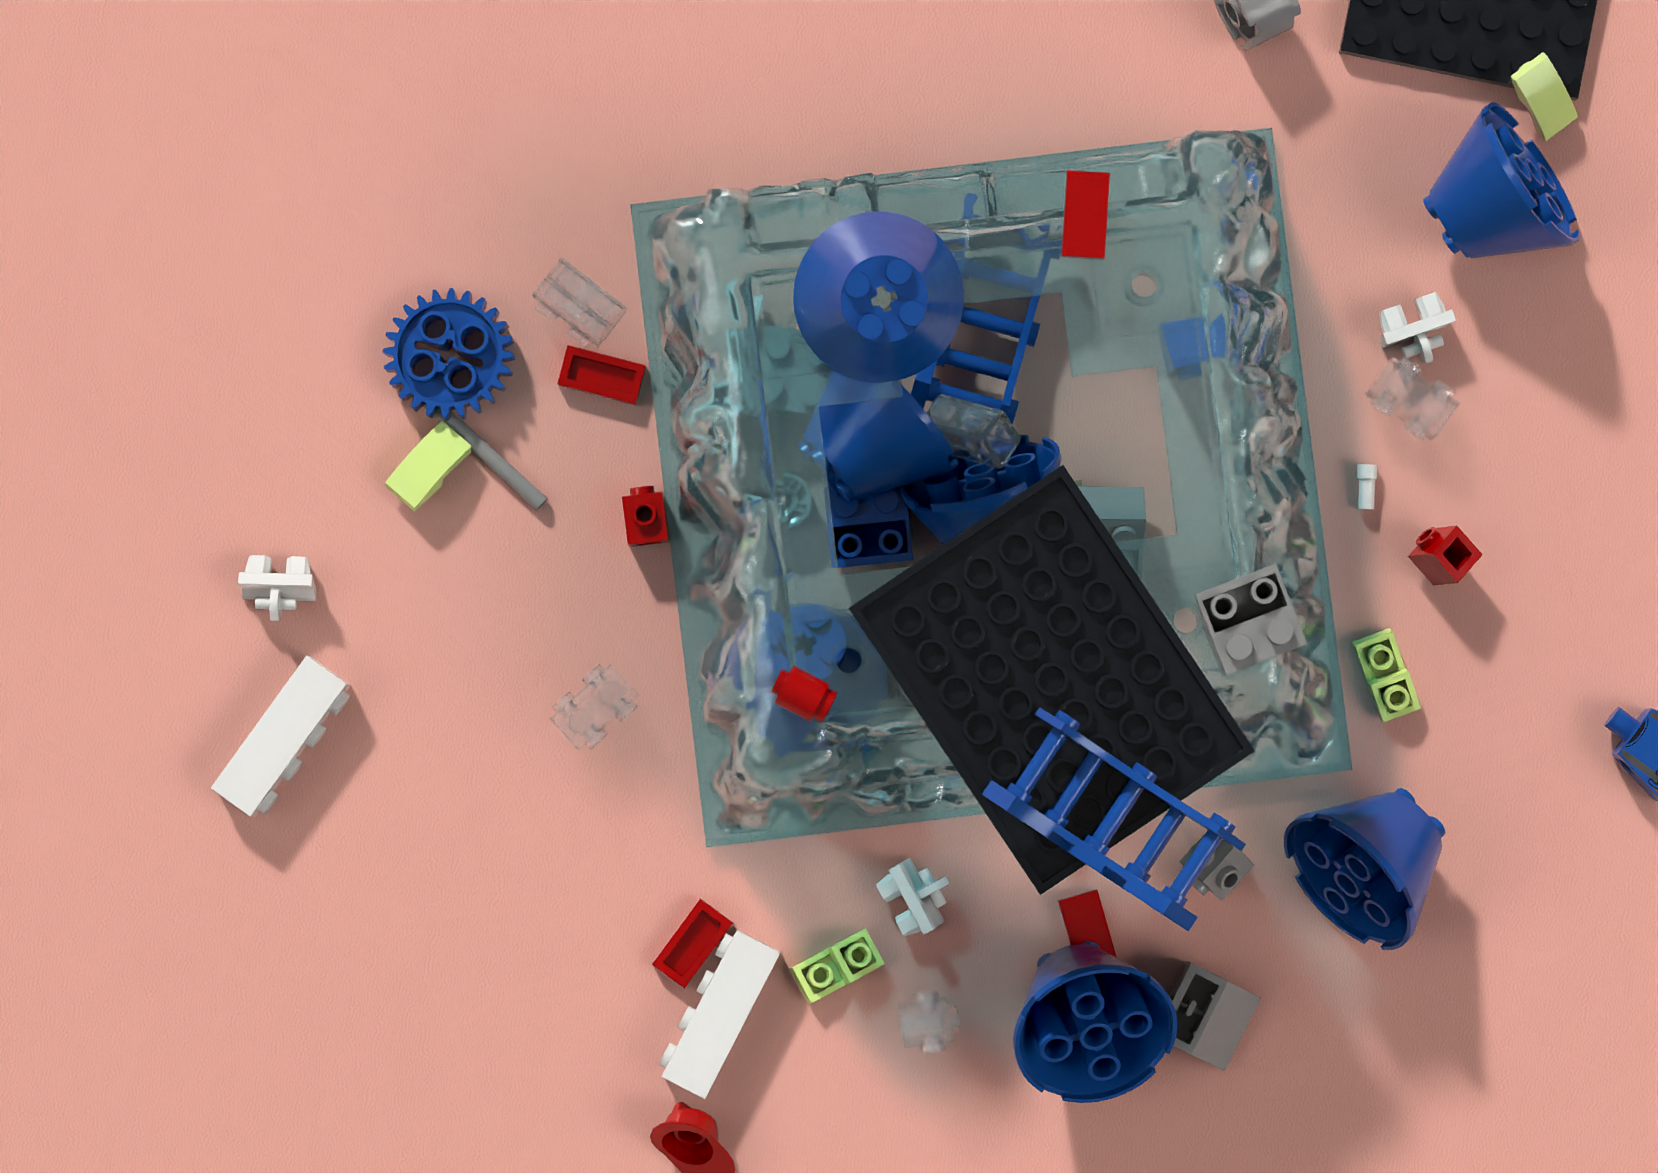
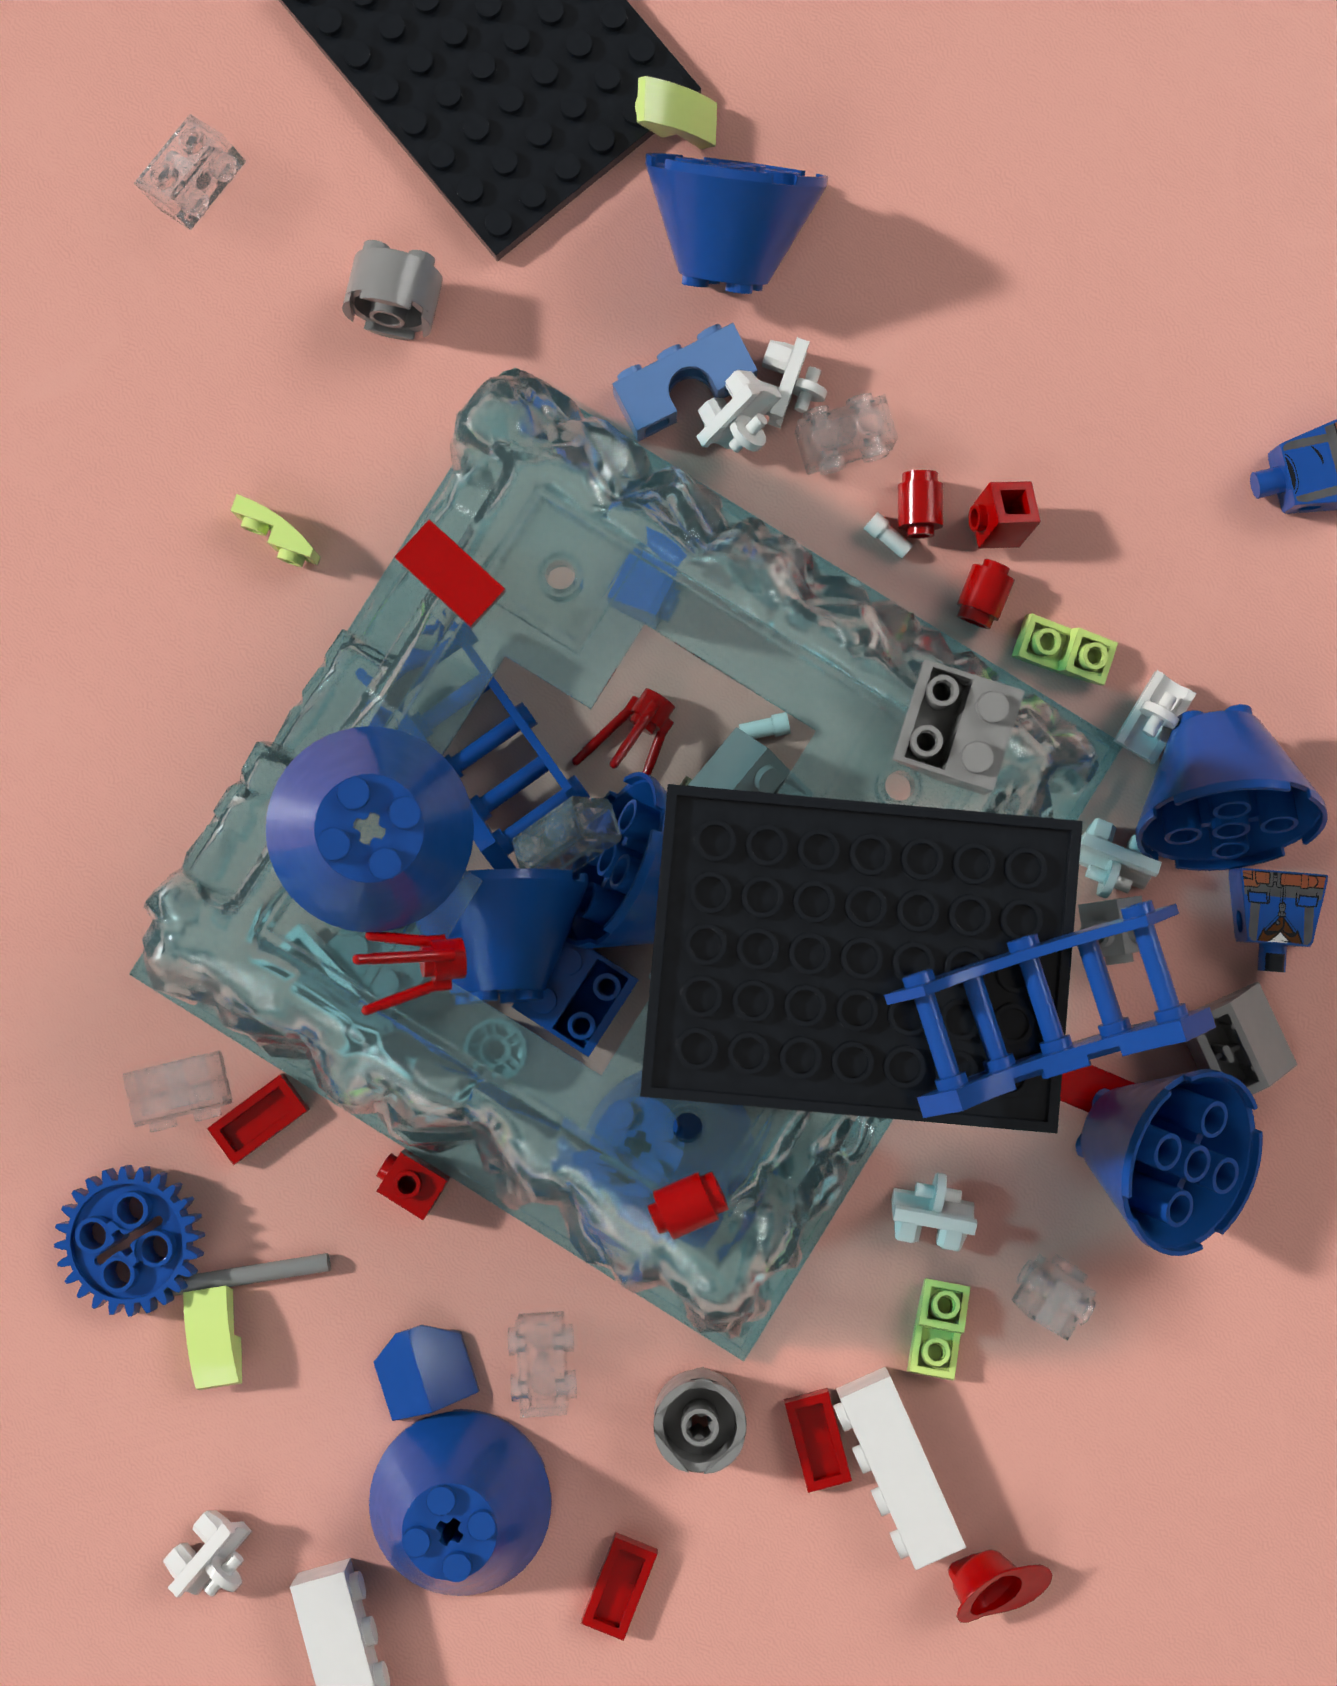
camera: 55 degrees left, 0 degrees up
(481, 885) = (619, 1586): none -> red tile
(487, 739) = (460, 1502): none -> blue cone
(521, 630) = (424, 1371): none -> blue slope
(624, 861) = (699, 1447): none -> light grey brick
(830, 408) = (438, 958): none -> red plant
(1020, 66) = (283, 537): none -> yellowish green slope
(1103, 418) = (649, 713): none -> red plant
(1159, 508) = (775, 725): none -> white piece
(1260, 825) = (1113, 864): none -> white hips
(1319, 969) = (1275, 911): none -> torso
(1361, 316) = (742, 418): none -> white hips
(1379, 586) = (985, 593): none -> red brick
(1387, 773) = (1154, 717): none -> white hips
(1391, 263) = (646, 390): none -> medium blue arch
(1406, 490) = (920, 503): none -> red brick

